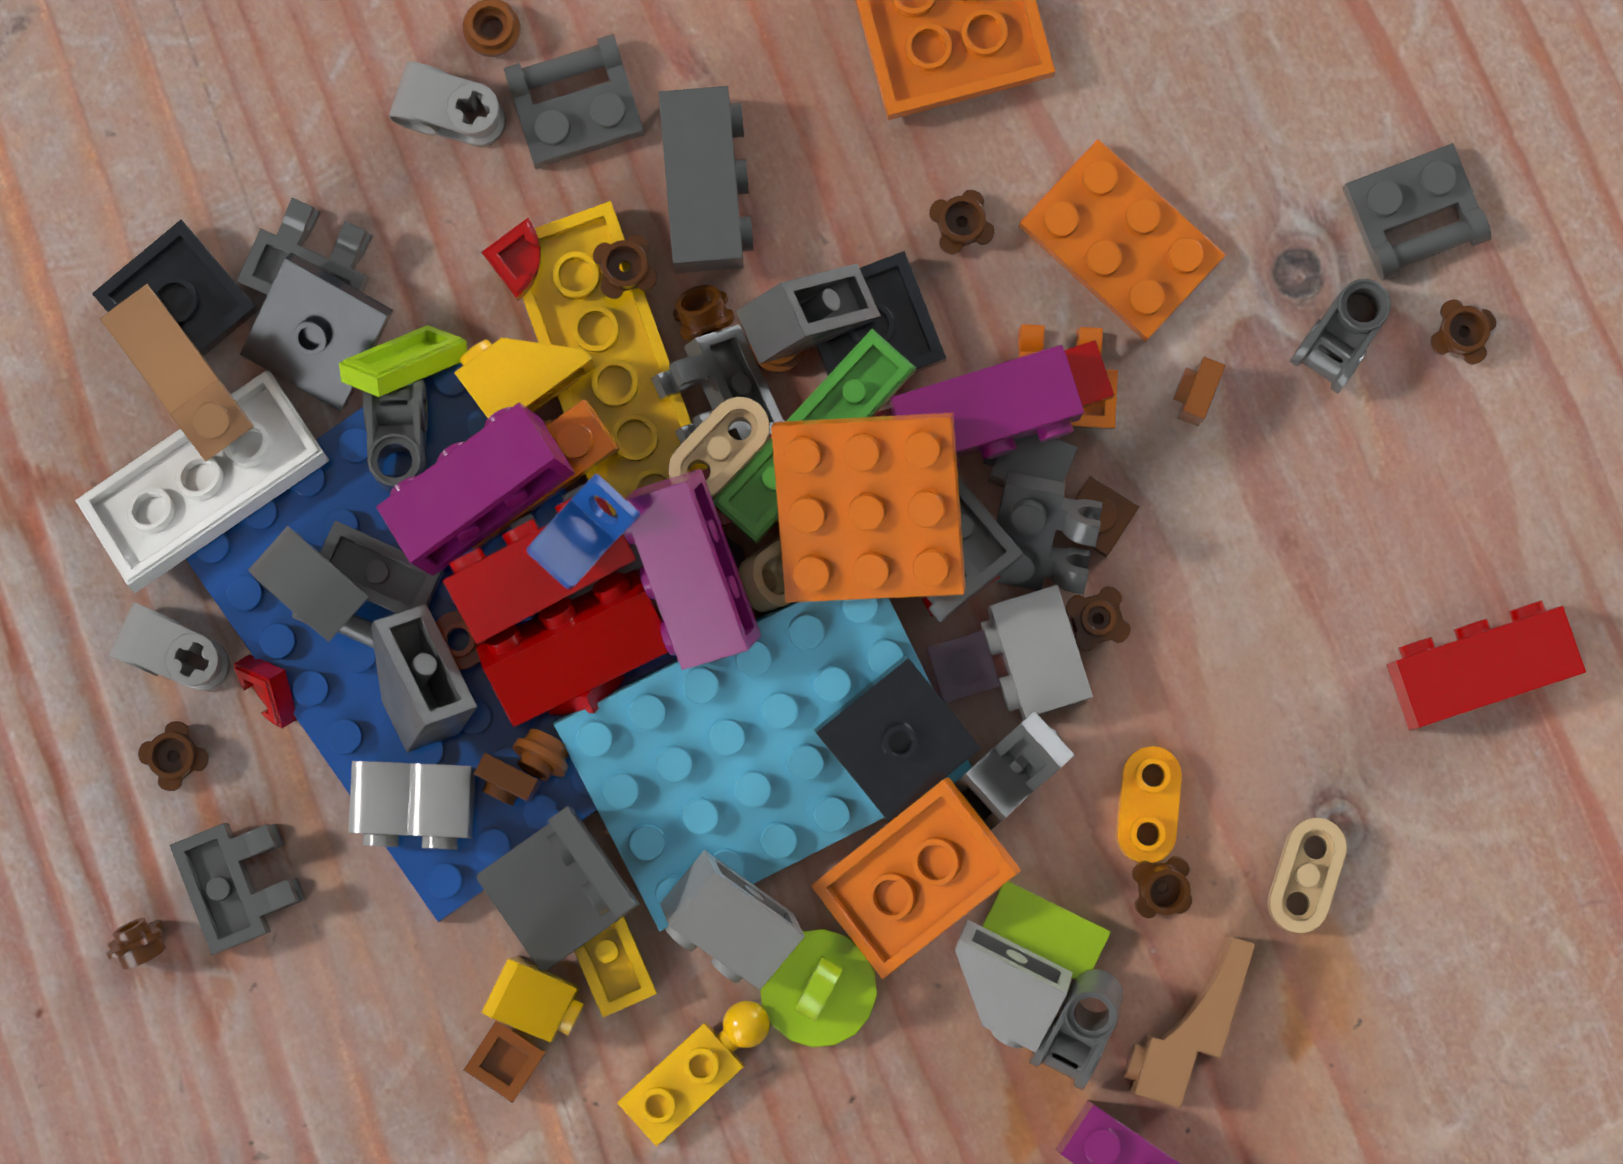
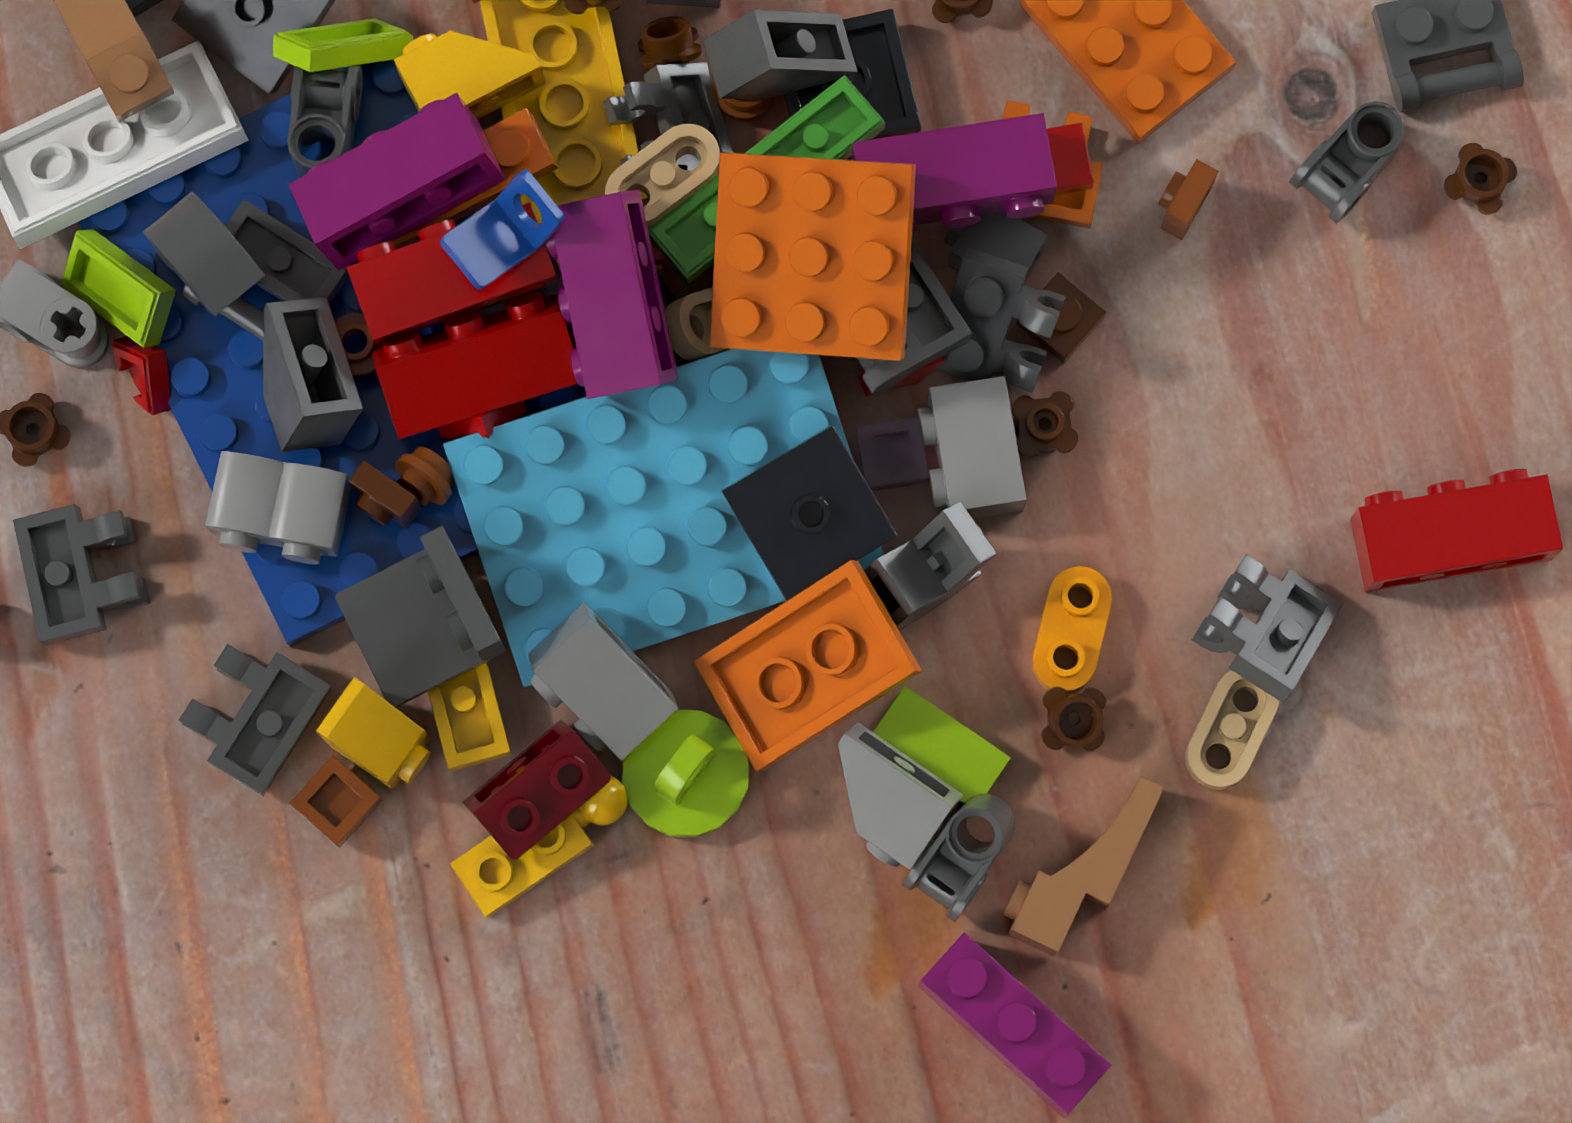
camera: 10 degrees right, 5 degrees down
(231, 616) = (118, 287): none -> lime tile
(431, 999) = (267, 724): none -> dark grey plate
(686, 1026) = (537, 790): none -> dark red bracket
(1344, 785) = (1285, 634): none -> dark grey plate

